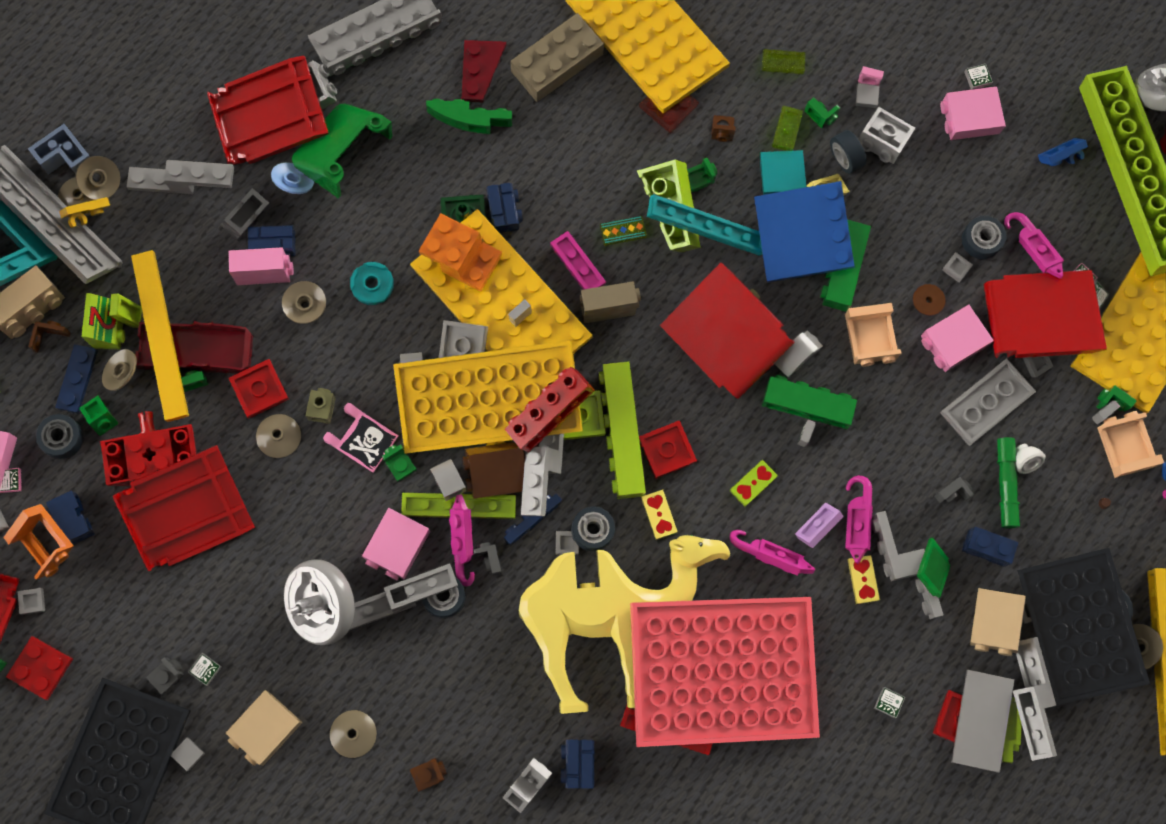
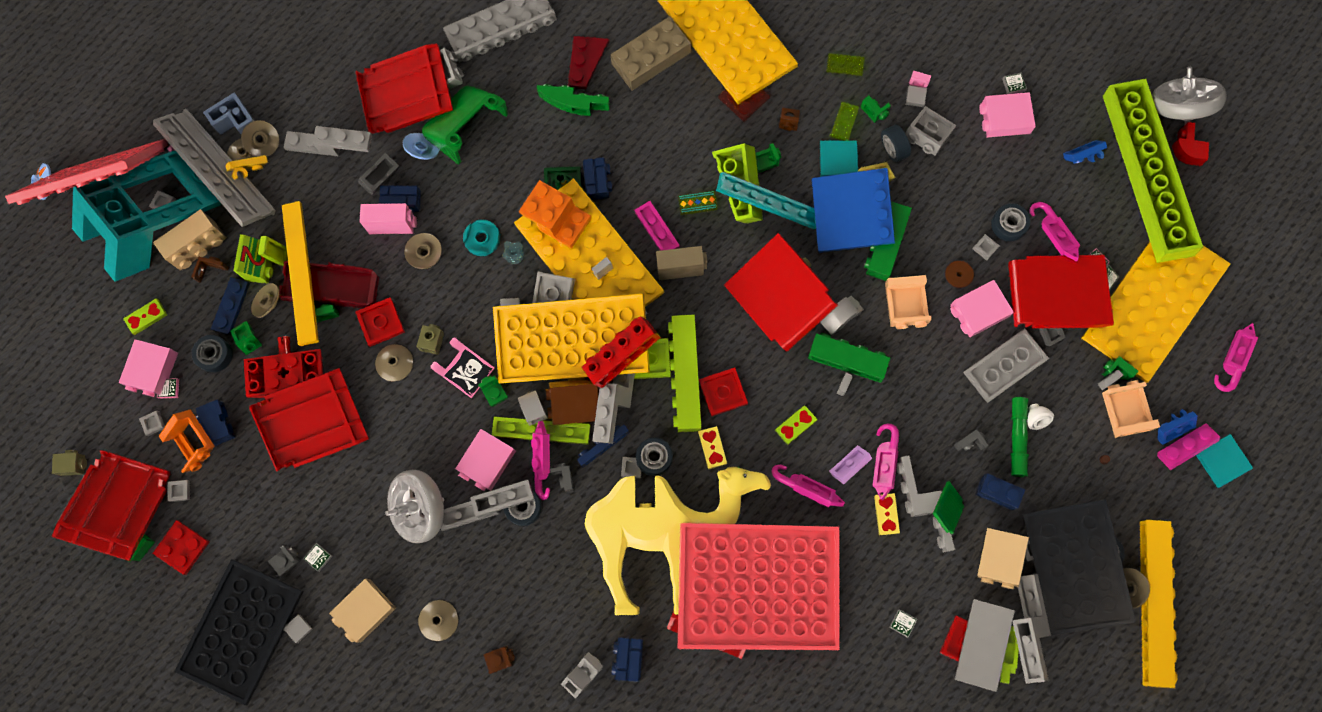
camera: 15 degrees right, 0 degrees up
(411, 293) = (511, 248): none -> clear light blue brick

